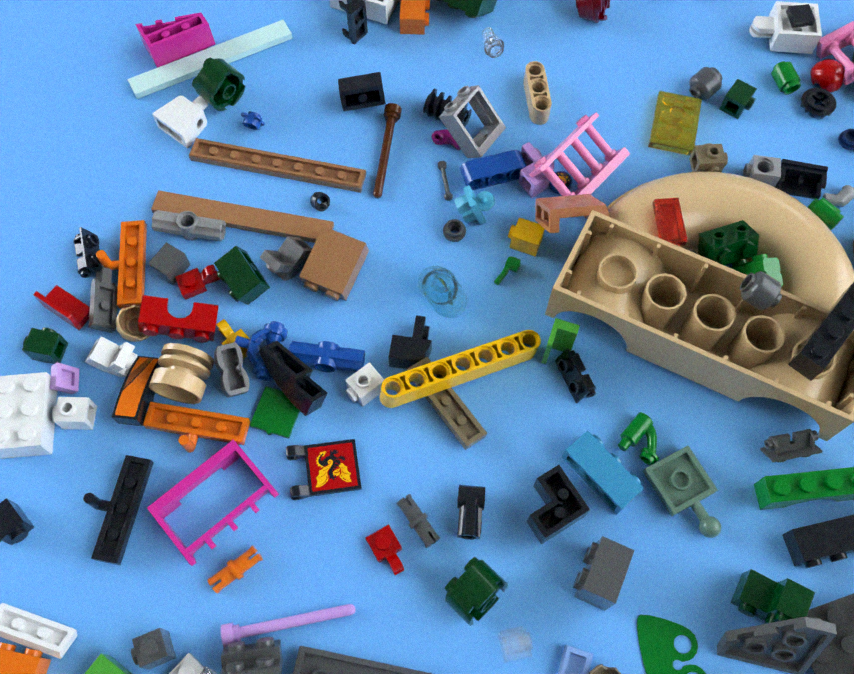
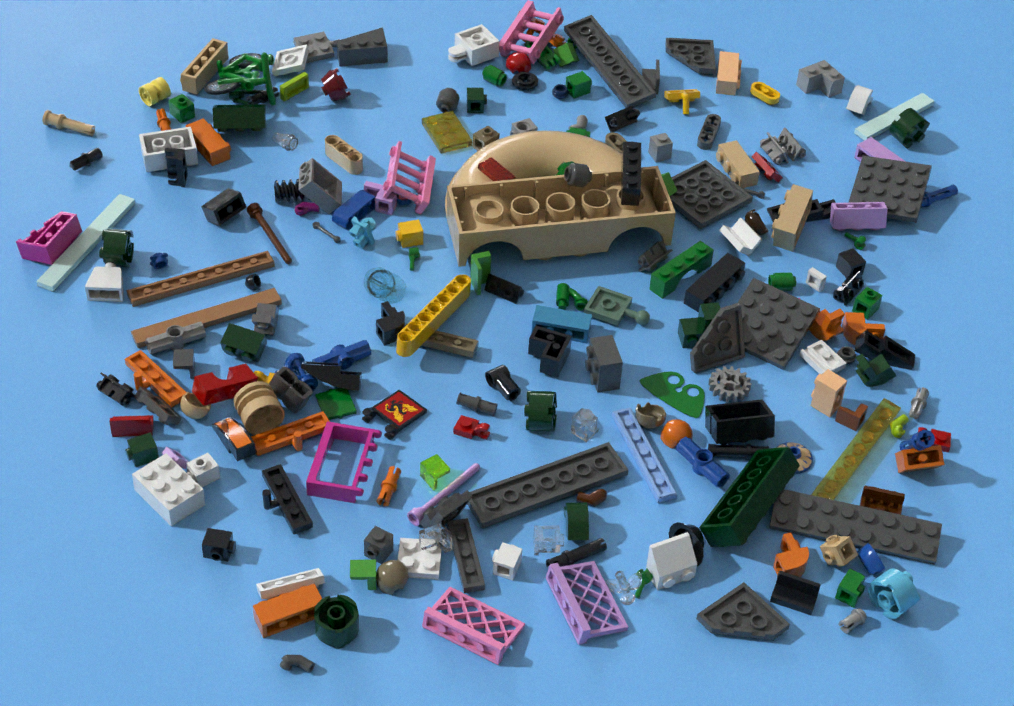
camera: 40 degrees left, 20 degrees down
(111, 357) = (198, 431): white brick -> none
(194, 282) = (211, 365): red plate -> none
(294, 586) = (432, 469): none -> clear neon green panel
(334, 264) = (300, 306): medium nougat brick -> none
(364, 385) = (381, 357): white brick -> none
(457, 225) = (359, 253): dark grey plate -> none
(551, 209) = (421, 205): nougat panel -> none
(729, 243) = (539, 165): dark green brick -> none
(800, 15) = (477, 34): black tile -> none
(802, 179) = (550, 121): black hinge -> none

